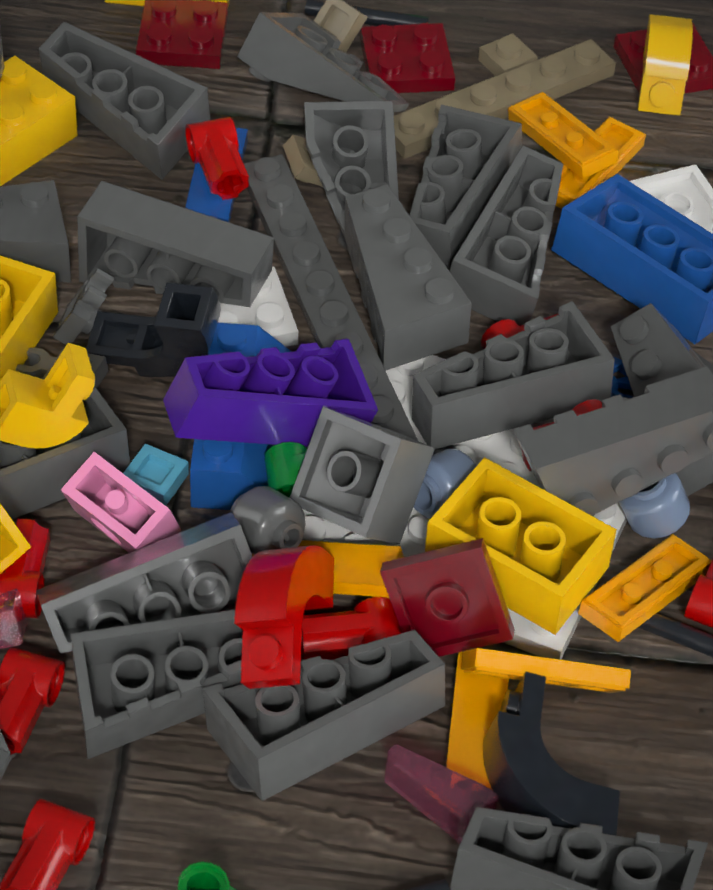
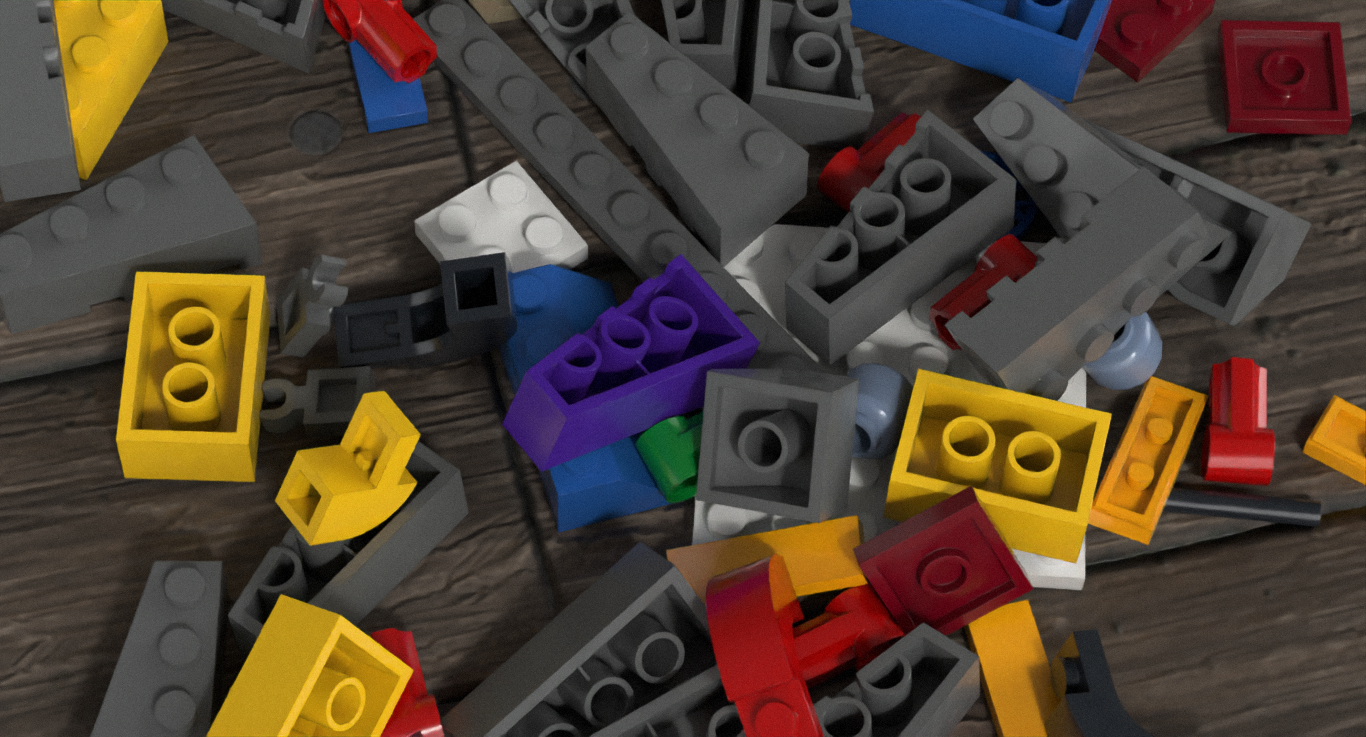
camera: 20 degrees left, 10 degrees up
(118, 505) = (491, 575): bright pink brick -> none
(157, 472) = (502, 509): medium azure plate -> none
(160, 243) = (391, 188): dark grey wedge -> none
(269, 519) = (685, 531): dark grey head -> none
(556, 671) = (1084, 614): light orange tile -> none

